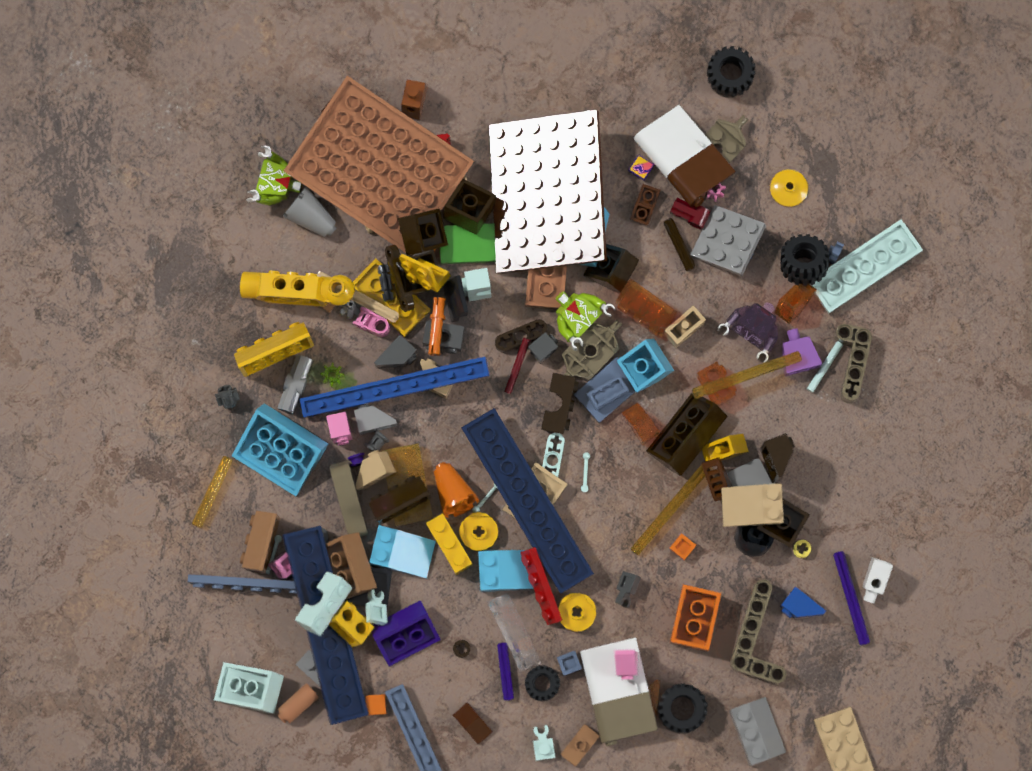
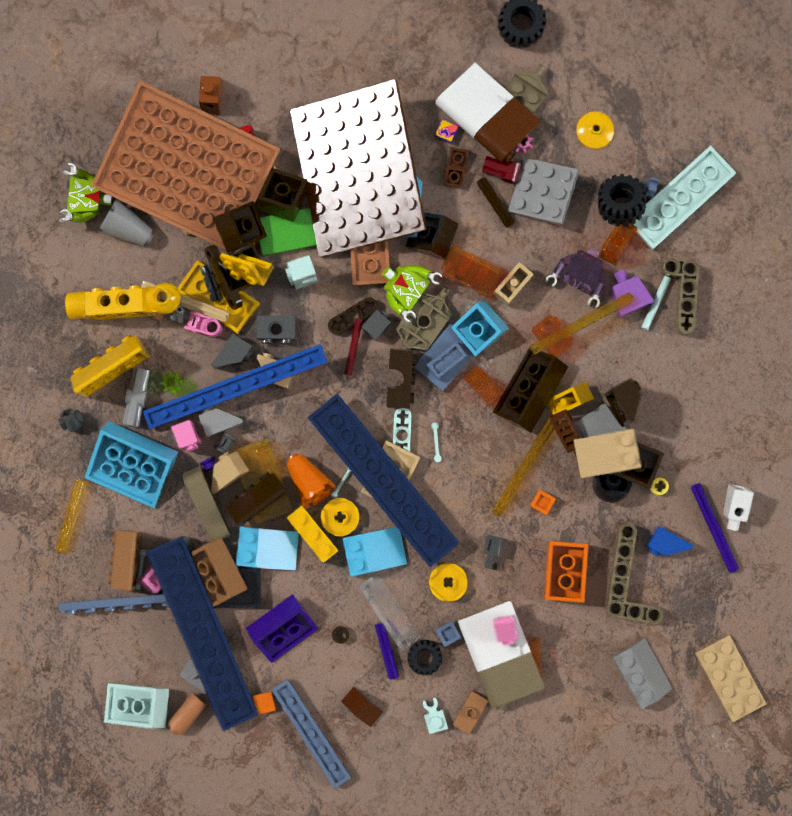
camera: 15 degrees left, 5 degrees up
(317, 617) = (194, 629): light aqua arch -> none
(347, 627) = (225, 633): yellow brick -> none
(375, 610) = (250, 611): light aqua plate -> none
(436, 326) = (267, 320): orange pin -> none
(455, 298) = (282, 289): black slope -> none
(541, 586) = (408, 560): red plate -> none
(698, 701) = (578, 674): black tyre -> none

